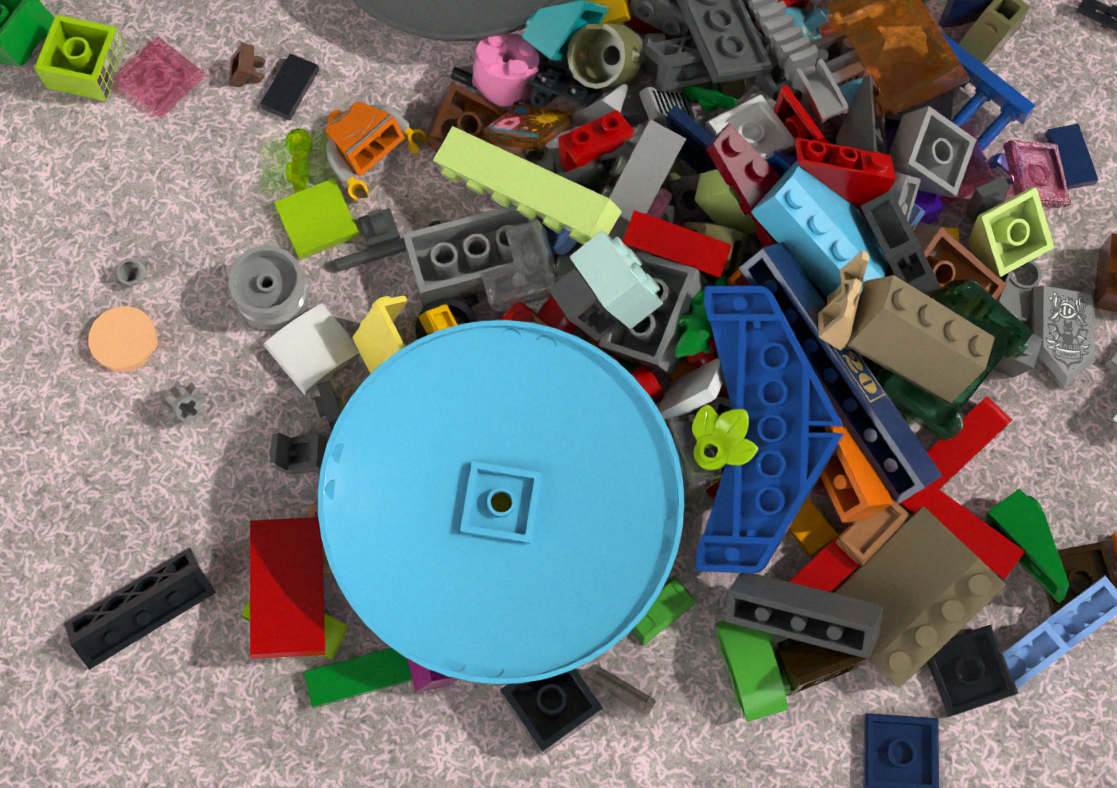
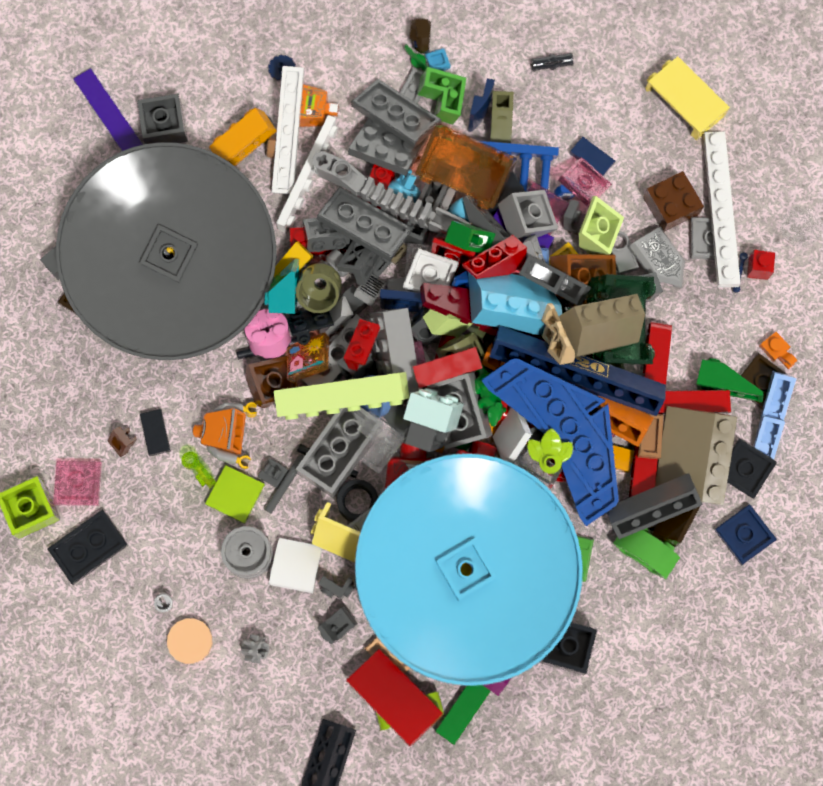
camera: 40 degrees left, 5 degrees up
(108, 152) = (87, 547): none -> black tile
(437, 319) = (354, 501): yellow tile -> none
(620, 690) = (598, 612): clear smoke tile -> none
(709, 99) = (389, 268): green piece -> none
(832, 115) = (469, 237): none -> green slope

